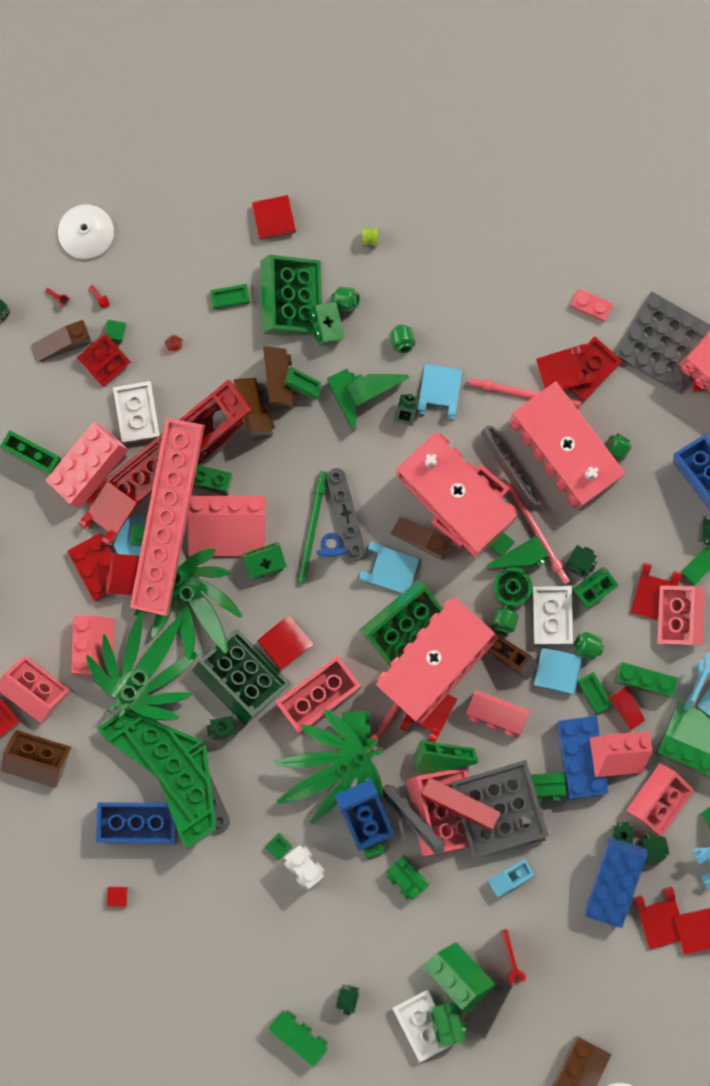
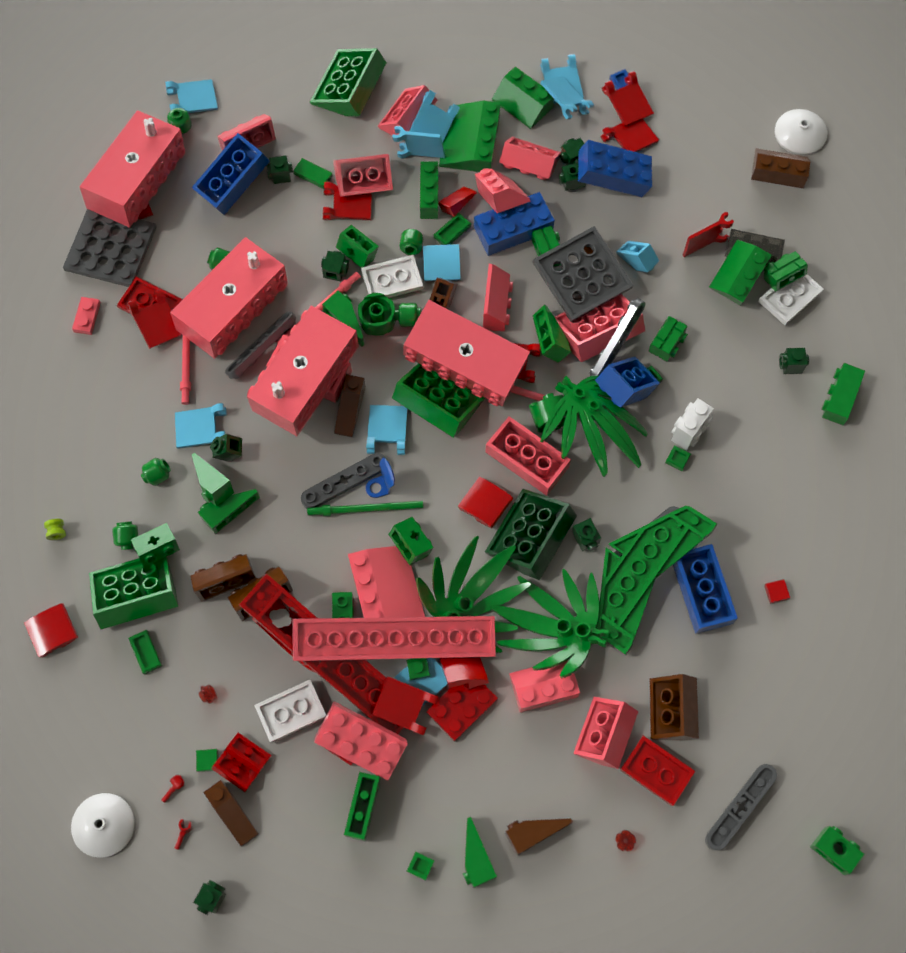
camera: 105 degrees left, 10 degrees down
(302, 383) = (222, 551): green tile -> none
(460, 804) = (591, 302): tile -> none

